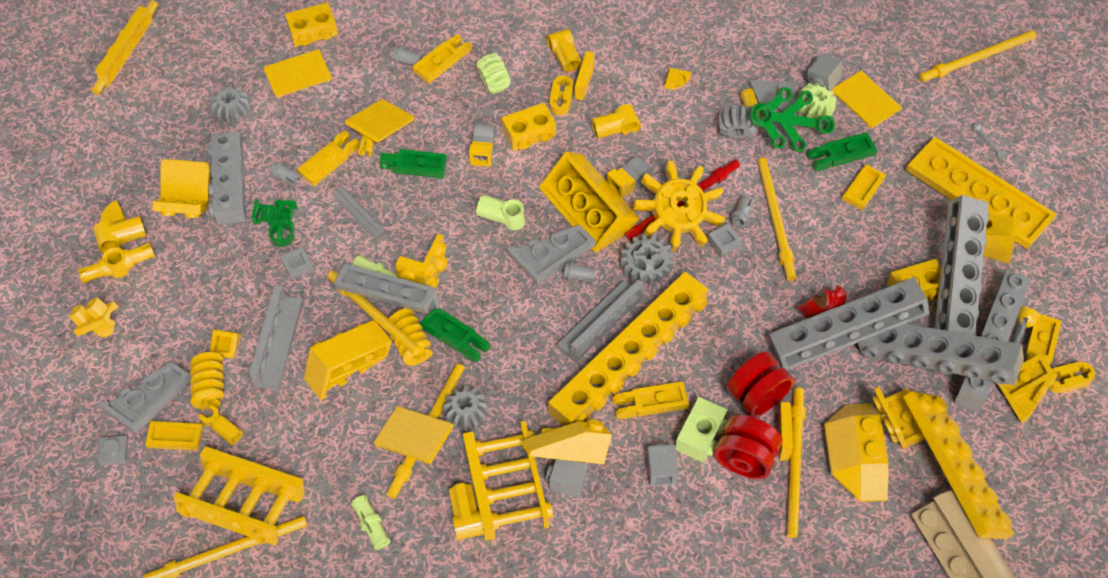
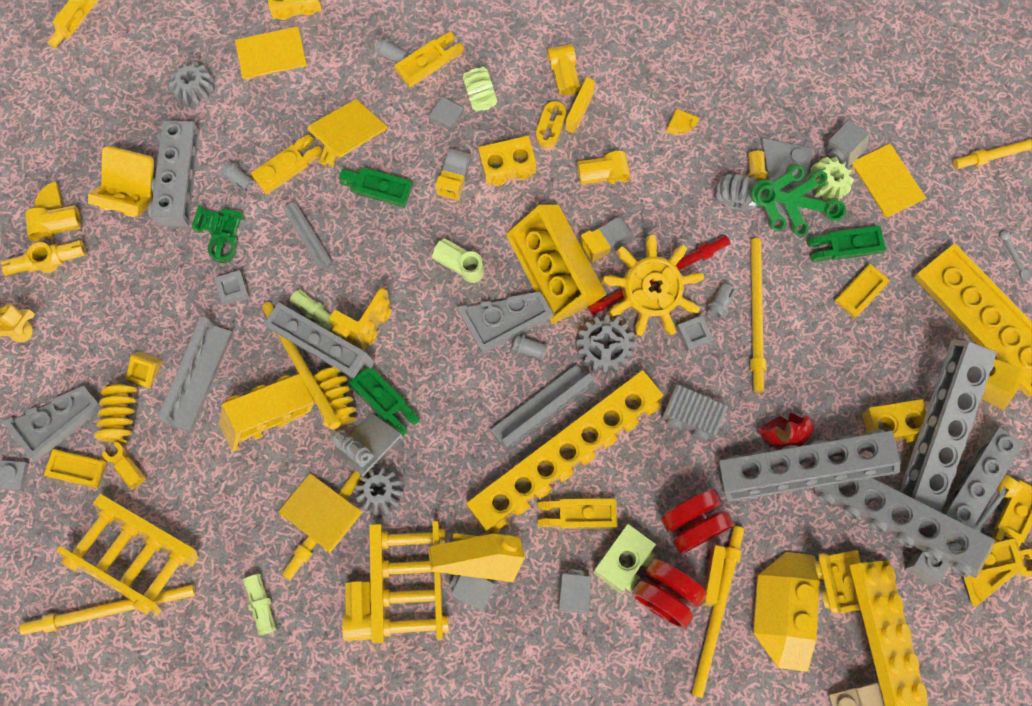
camera: 10 degrees right, 15 degrees up
(445, 370) = (365, 443): none -> light grey hinge
(466, 99) = (446, 113): none -> light grey tile
(738, 302) = (694, 413): none -> light grey brick

